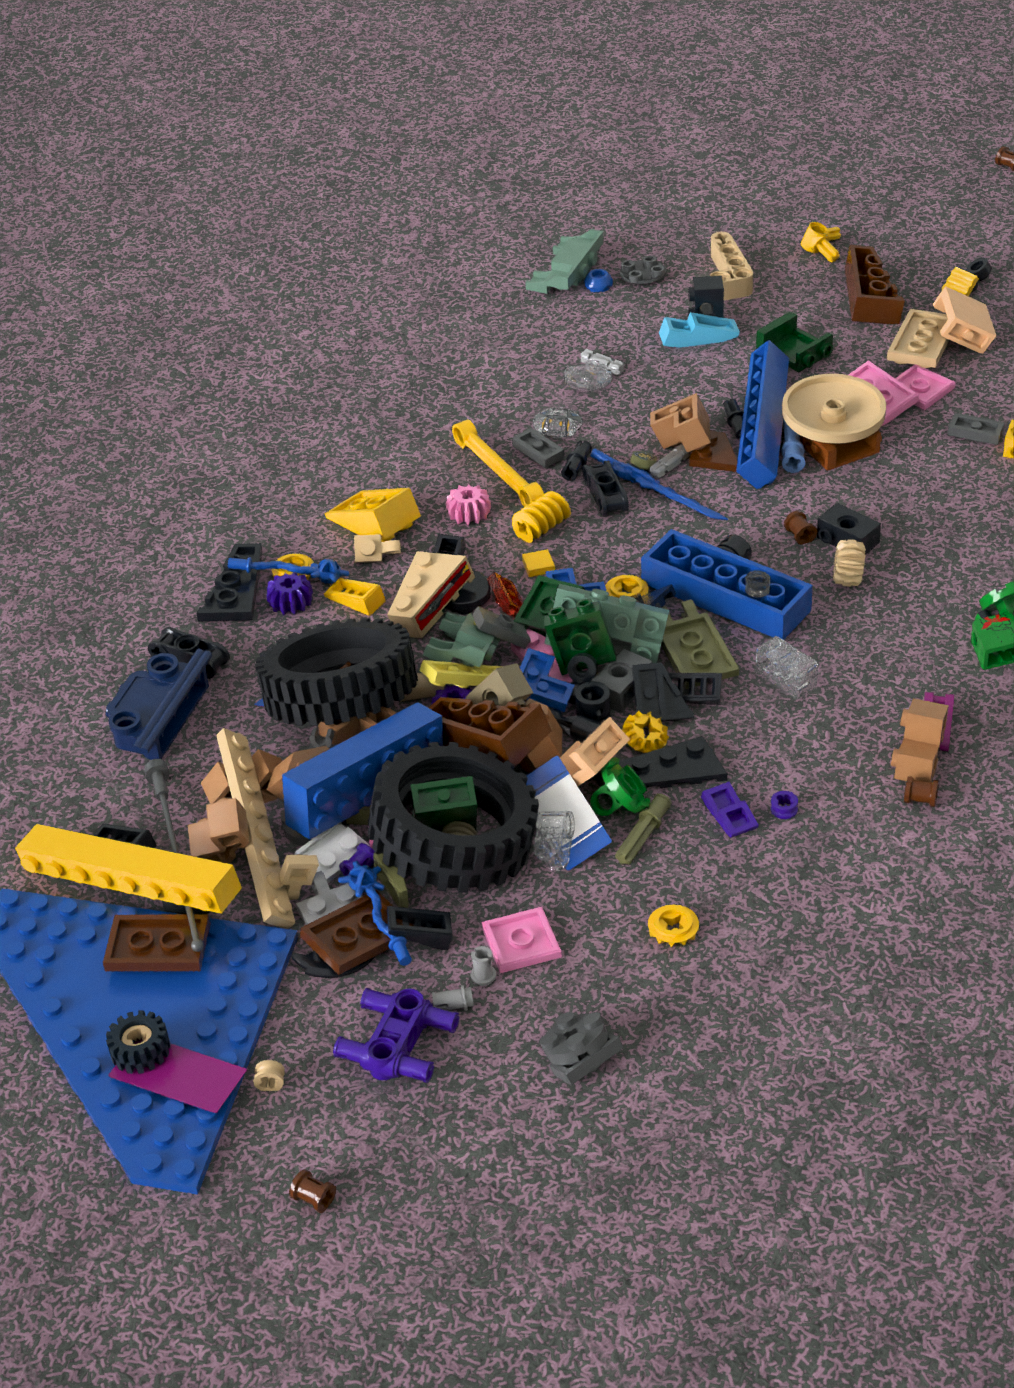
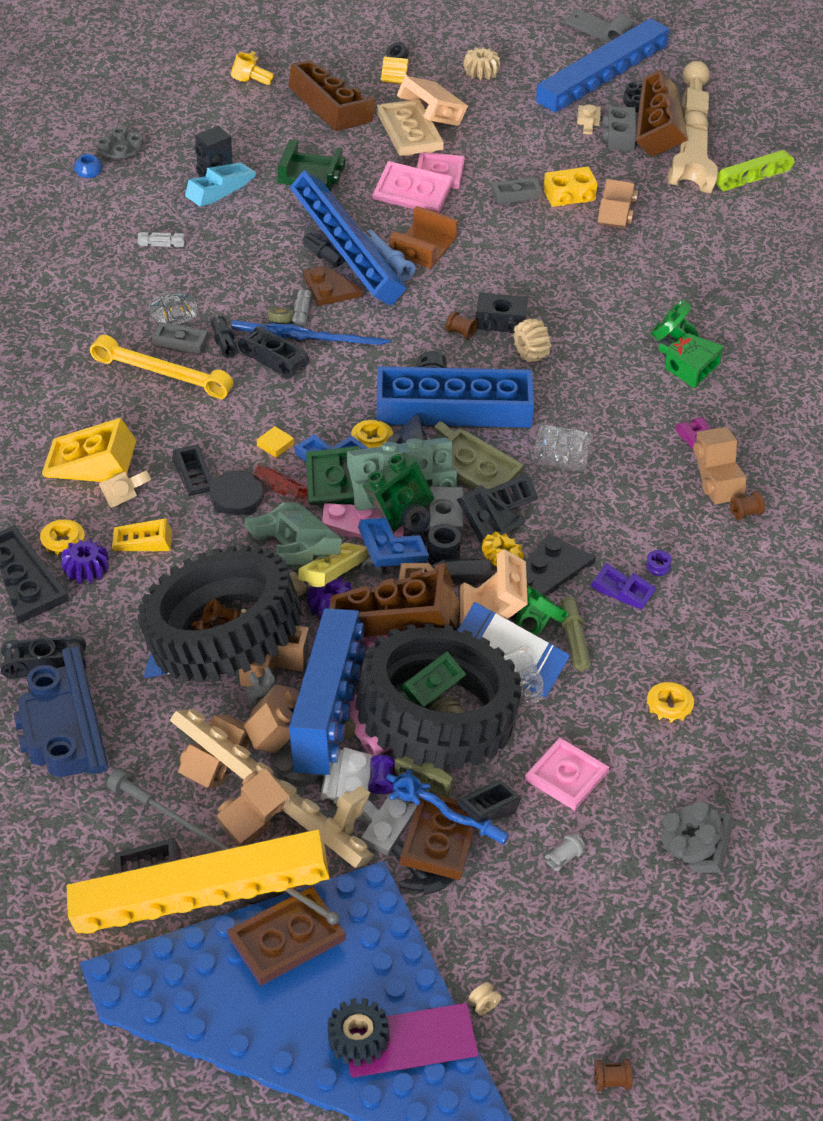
camera: 40 degrees left, 5 degrees up
(327, 570) = (98, 525): blue piece -> none
(396, 1034) = (553, 906): dark purple piece -> none
(427, 589) = (220, 503): tan wedge -> none
(468, 504) = (169, 413): bright pink gear -> none
(482, 971) = (567, 816): light grey pin -> none
(501, 627) = (317, 510): dark grey plate -> none
(502, 686) = (383, 558): dark tan brick -> none
(540, 516) = (244, 399): yellow piece -> none
(571, 262) = (56, 157): sand green bracket -> none
(587, 376) = (162, 257): clear dish -> none
(682, 423) = (293, 267): medium nougat brick -> none
(732, 265) = (191, 111): tan beam -> none
(757, 584) = (494, 386): clear smoke bush -> none
(834, 408) = (410, 212): tan dish -> none

